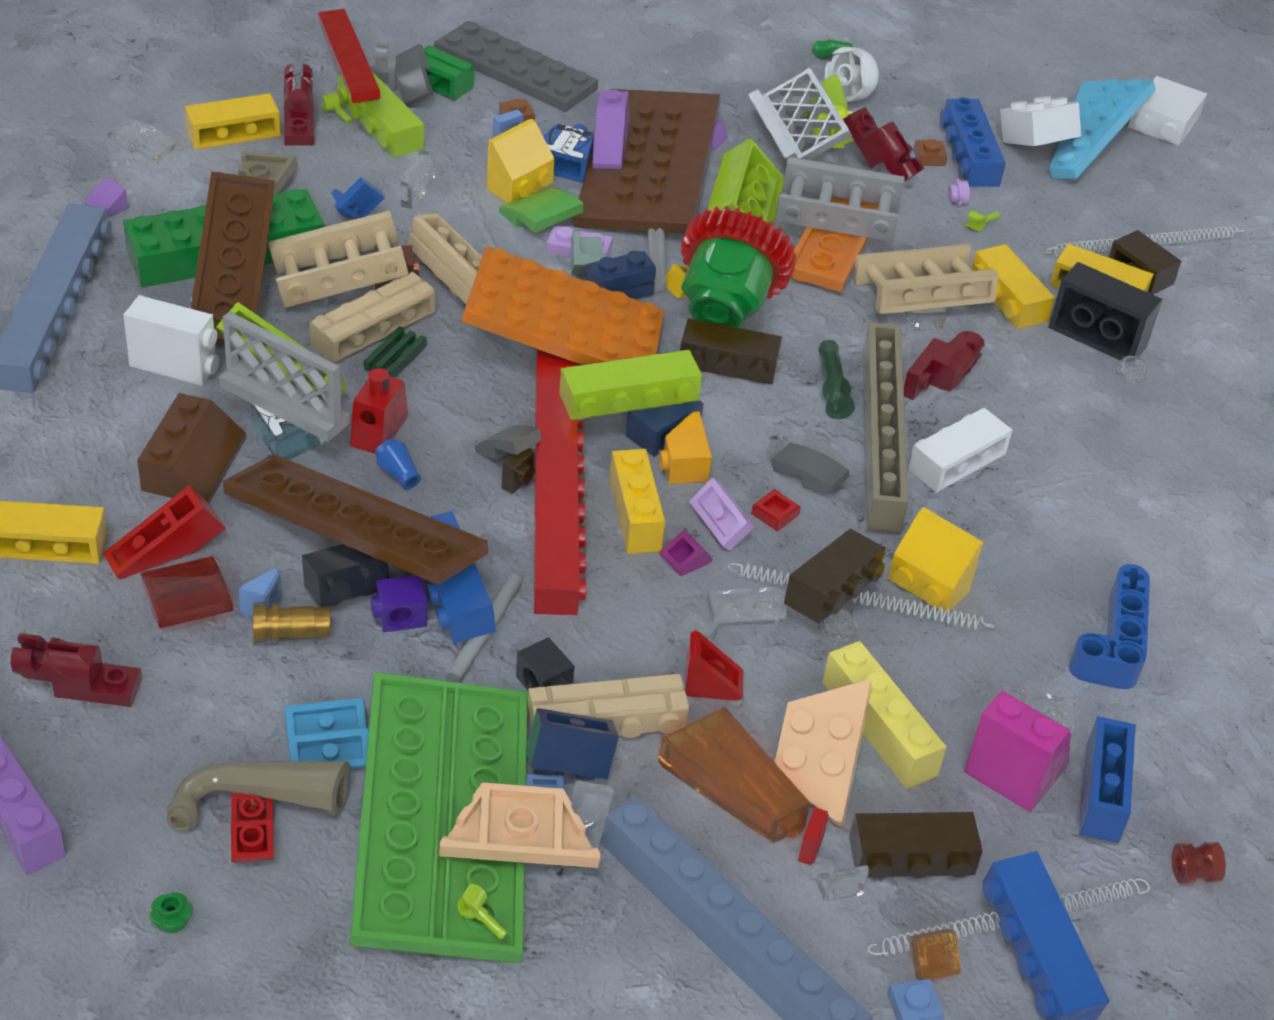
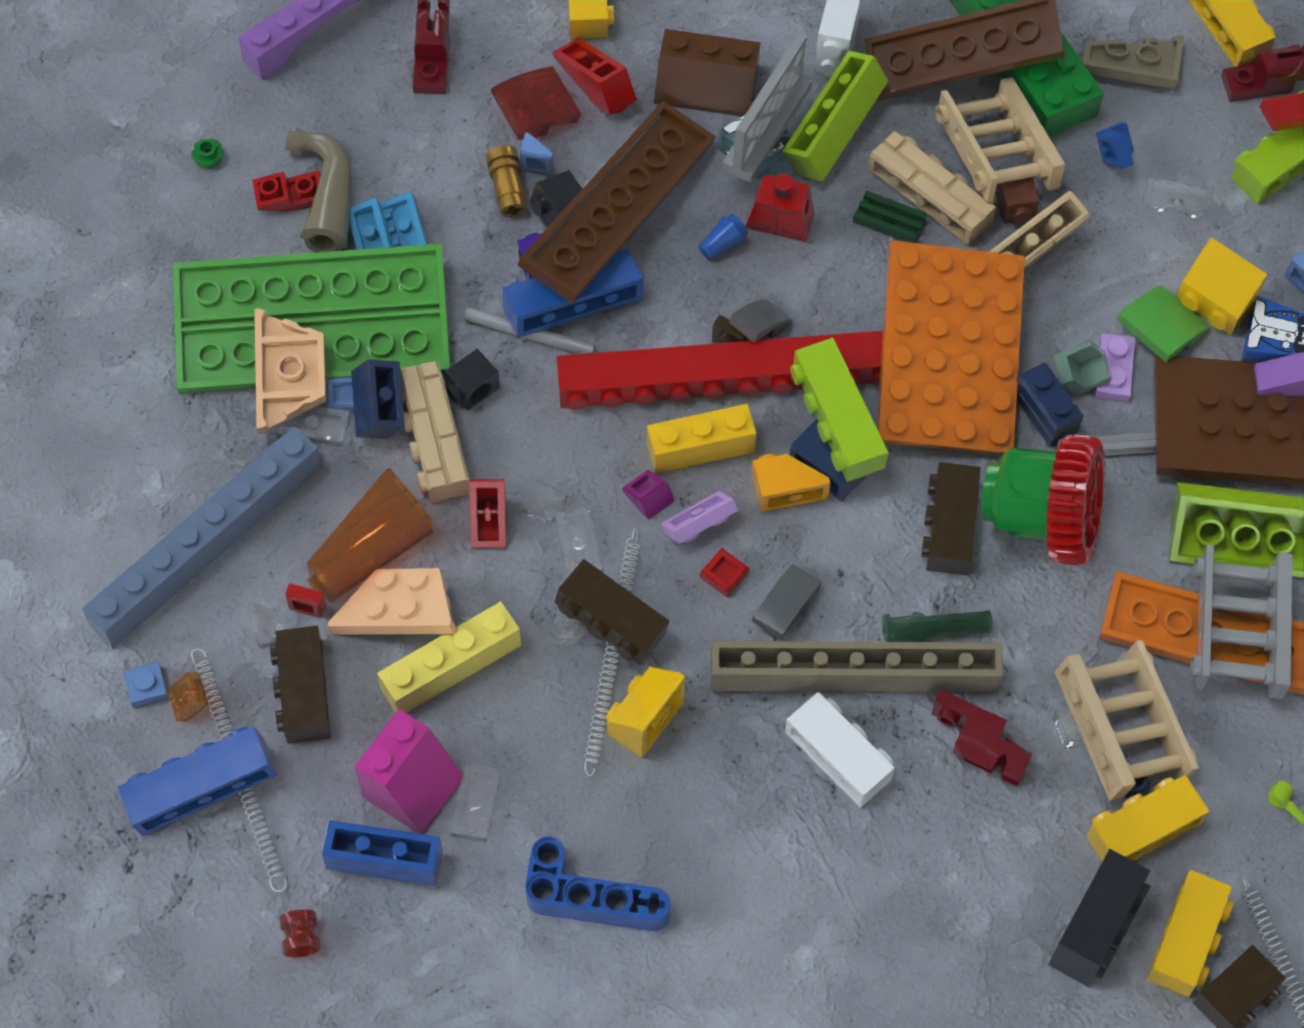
camera: 90 degrees right, 20 degrees up
(471, 906) = (208, 341): lime hand -> none

